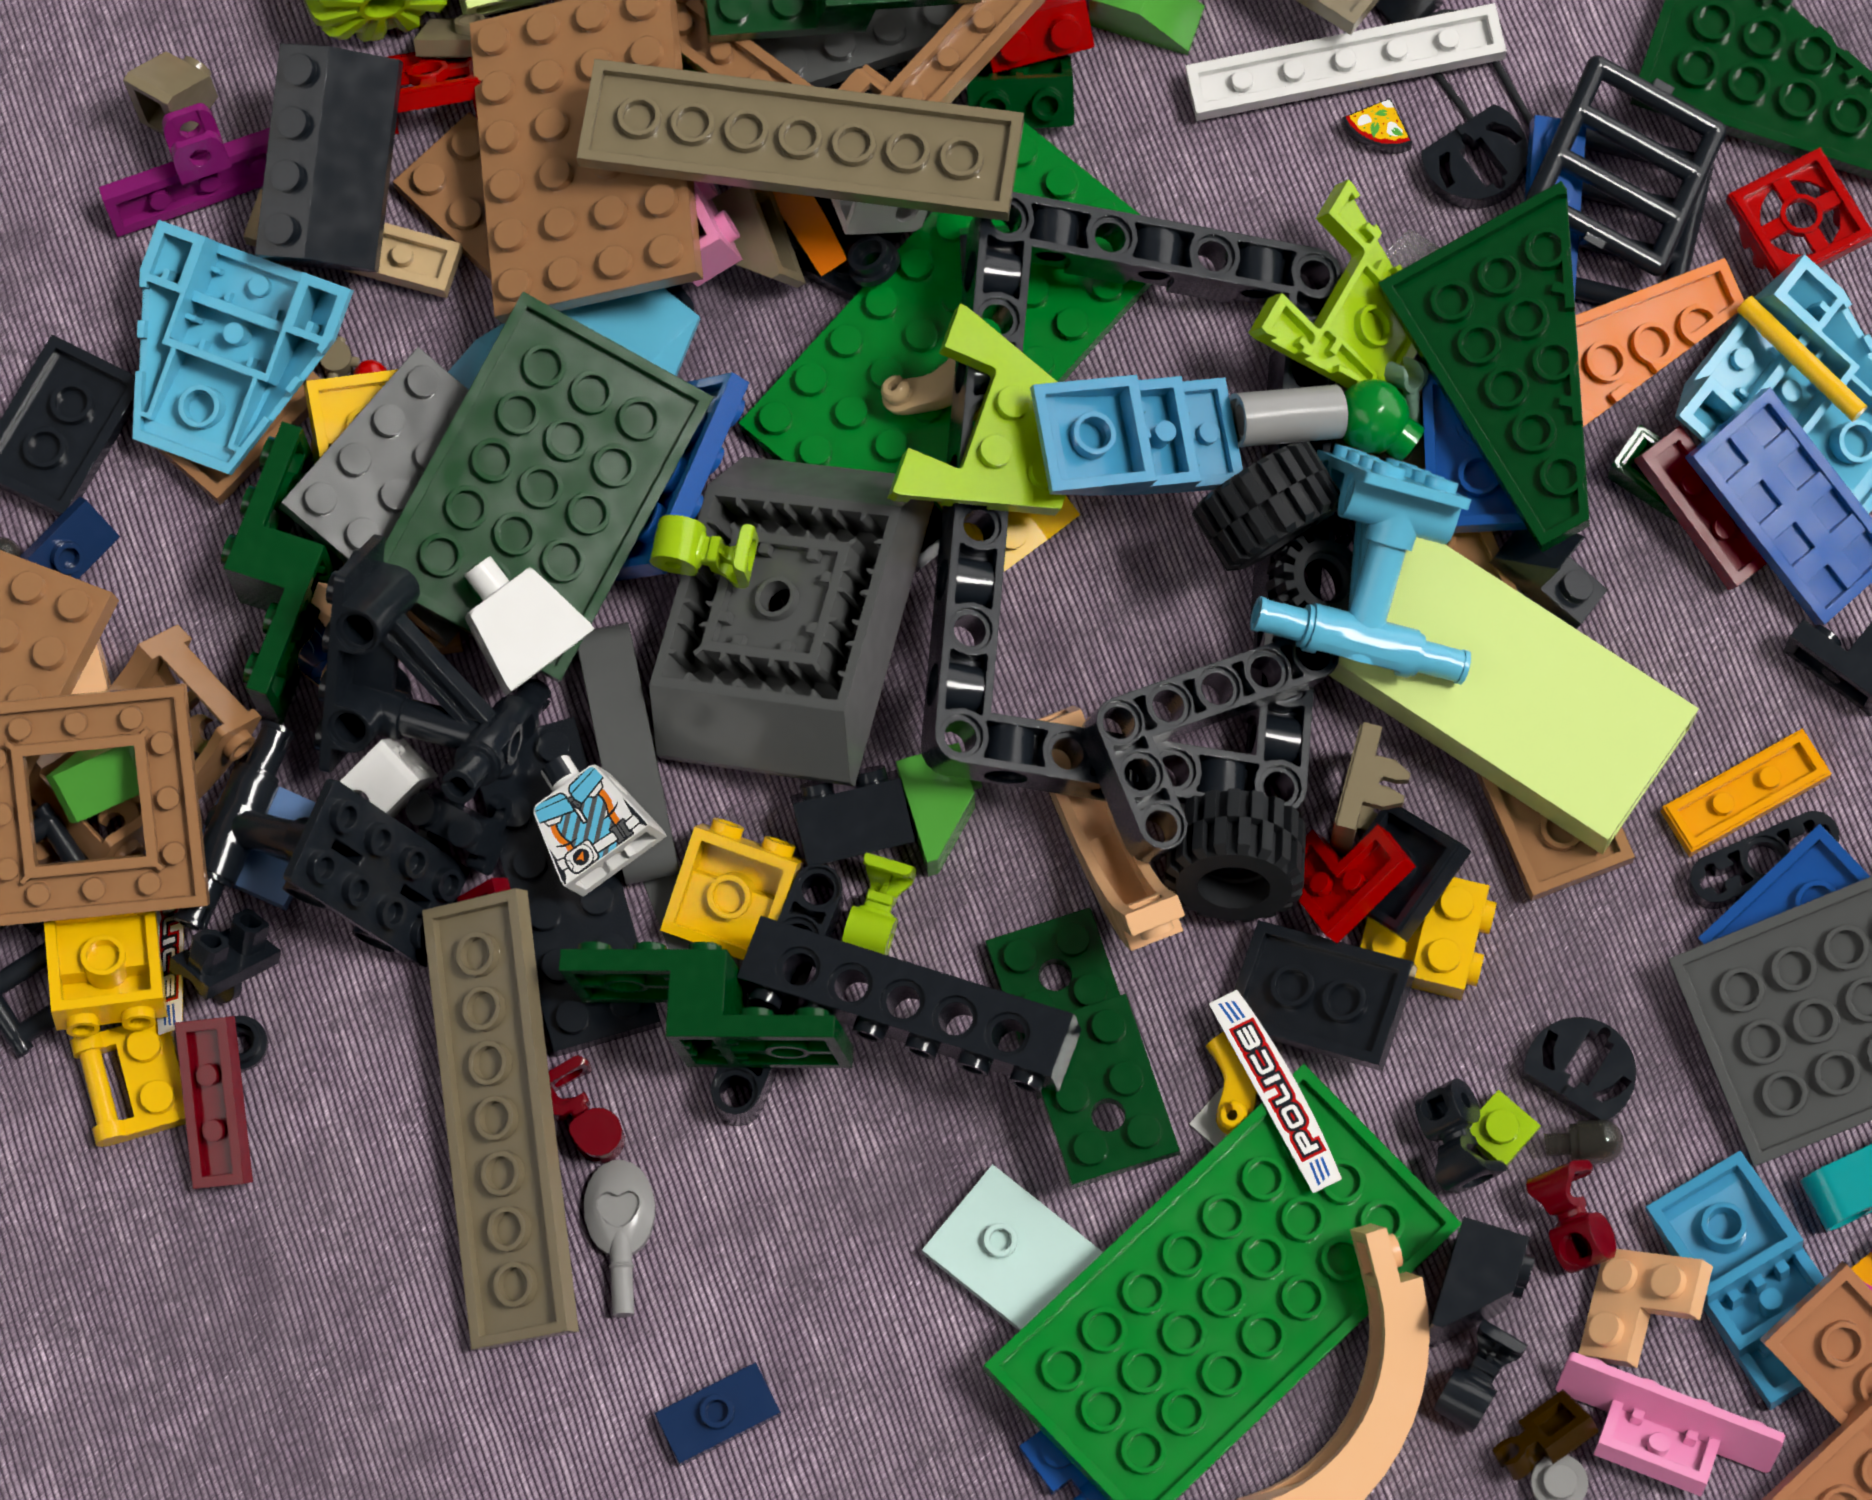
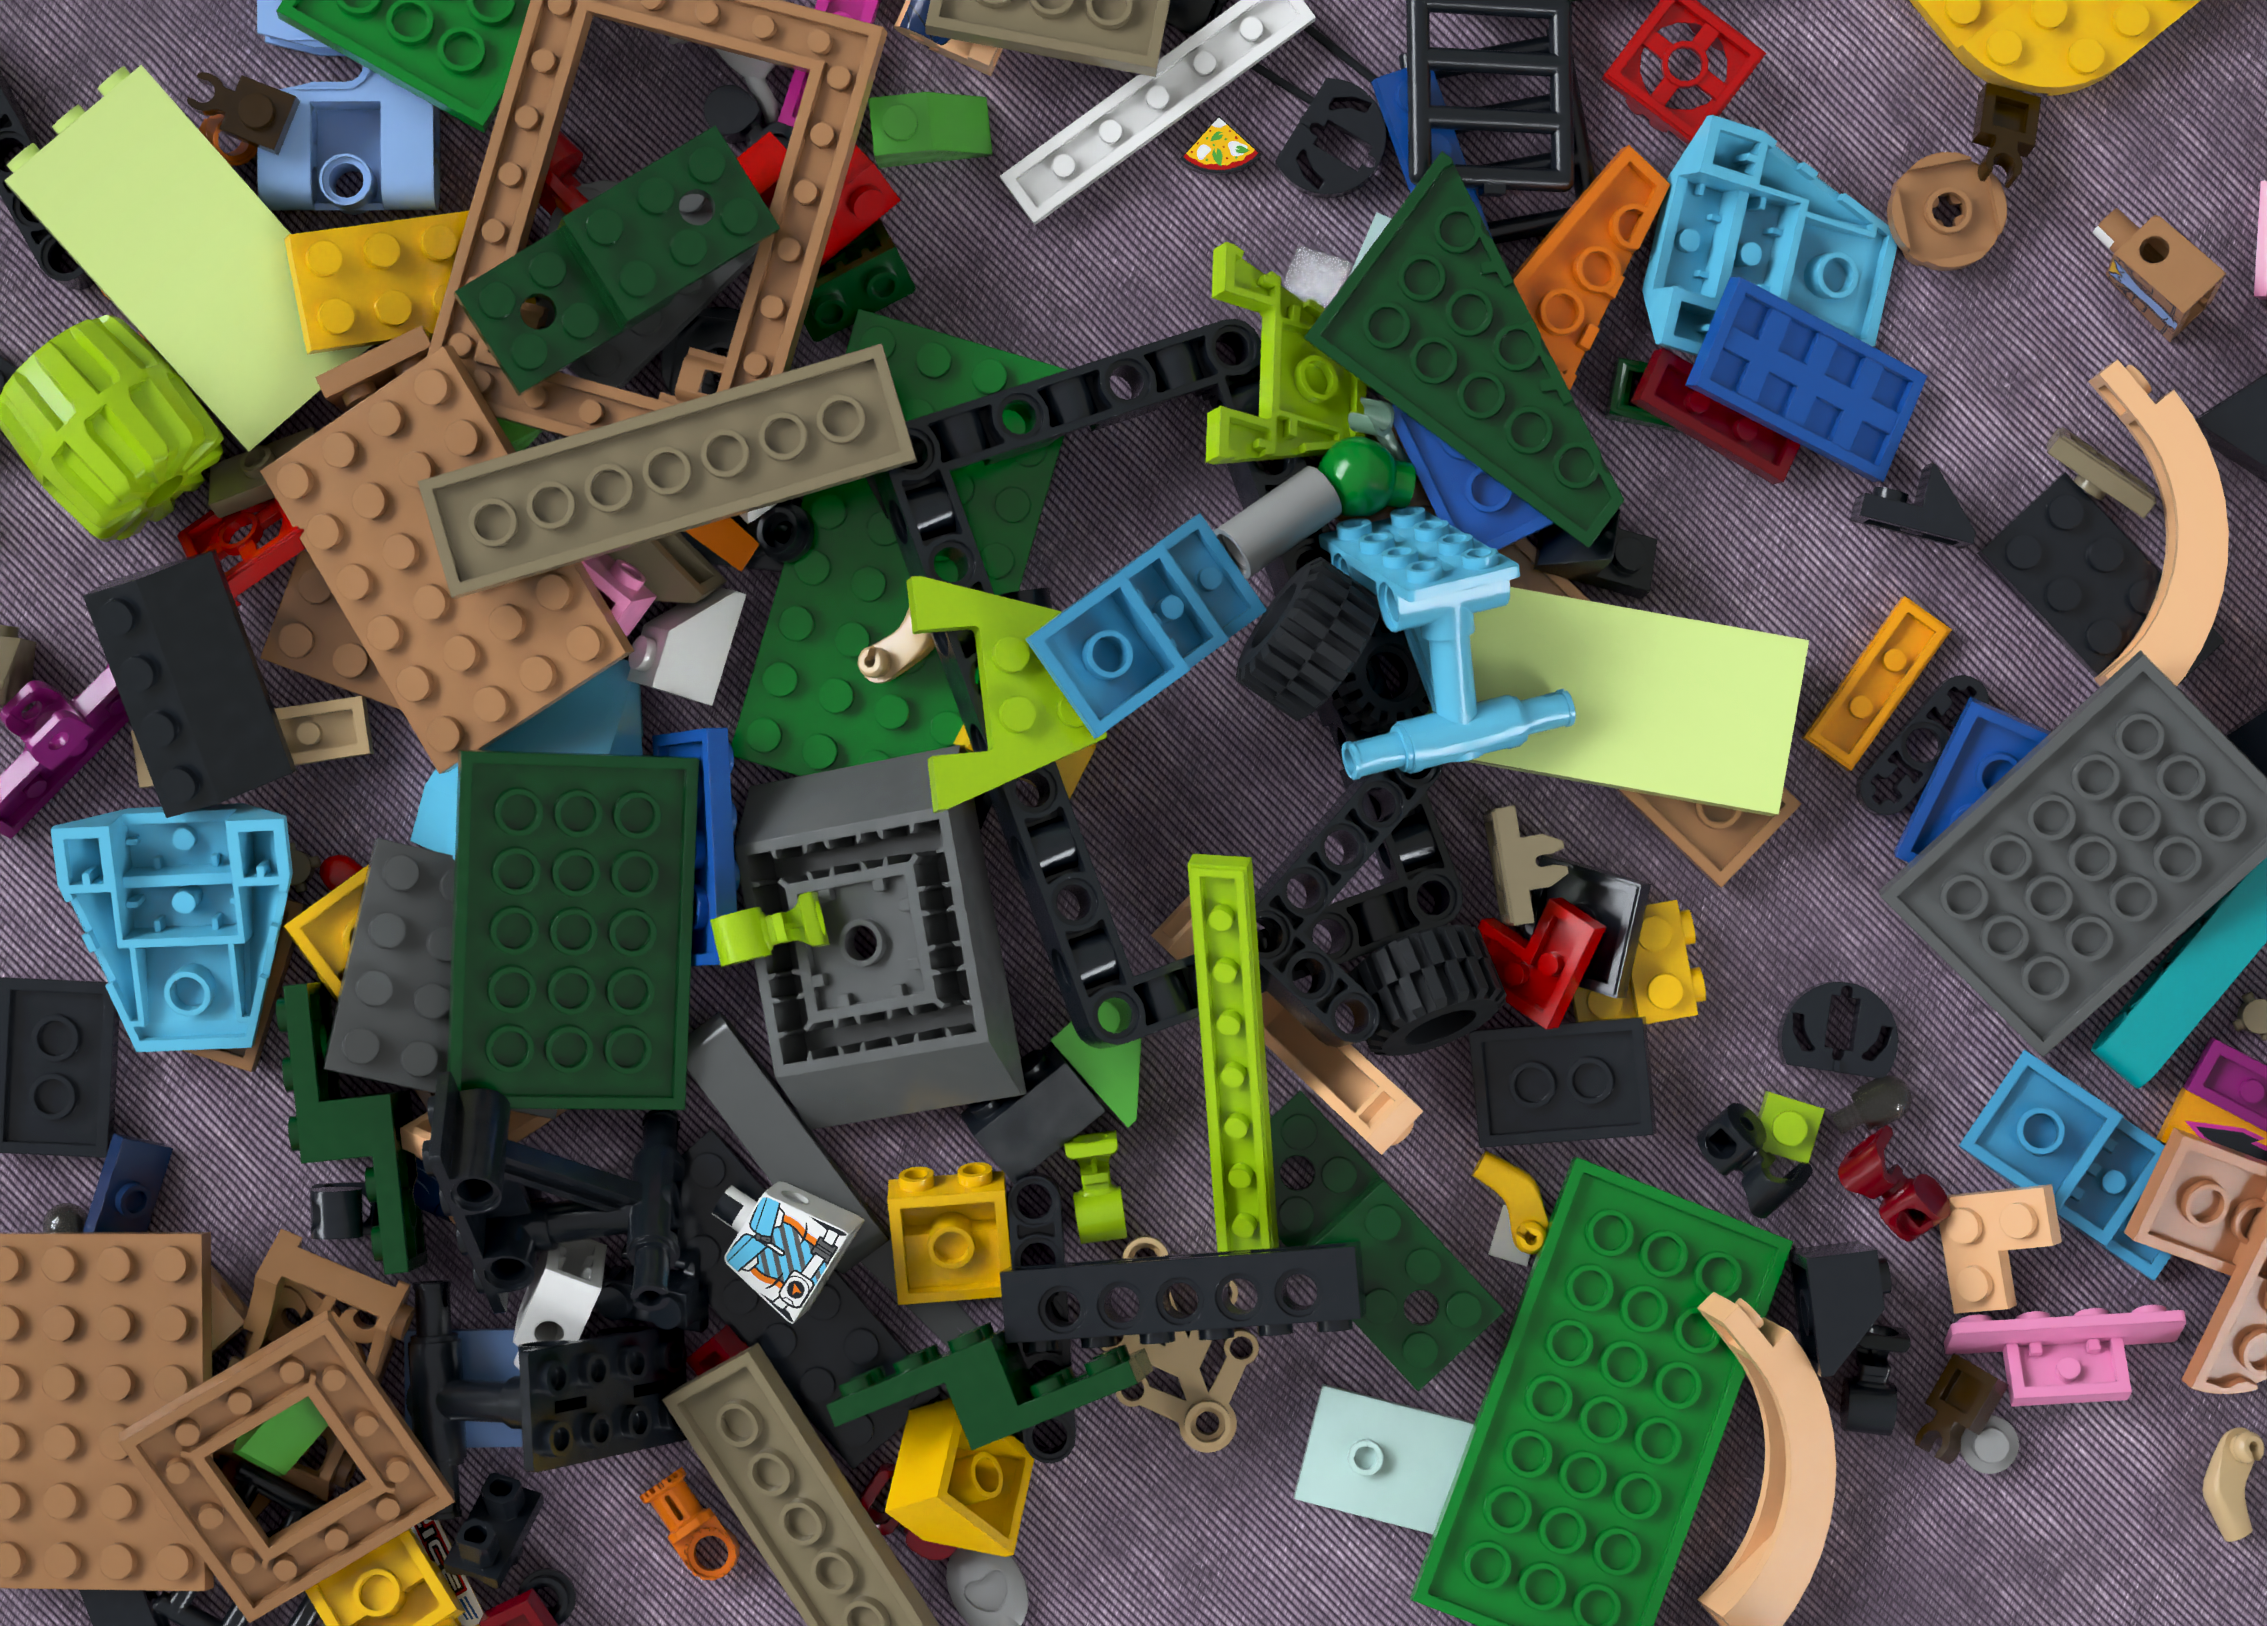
camera: 30 degrees left, 15 degrees up
(229, 637) = (338, 1211): none -> black leg
(393, 1036) = (689, 1524): none -> orange connector
(521, 623) = (624, 1084): white torso -> none
(641, 1092) = (957, 1492): none -> yellow slope
(745, 321) = (687, 647): none -> white slope
(882, 1089) = (1184, 1361): none -> tan plant
(1048, 809) = (1233, 1051): none -> lime tile
(1277, 1090) = (1564, 1196): sticker -> none
(1802, 358) = (1751, 220): yellow bar -> none

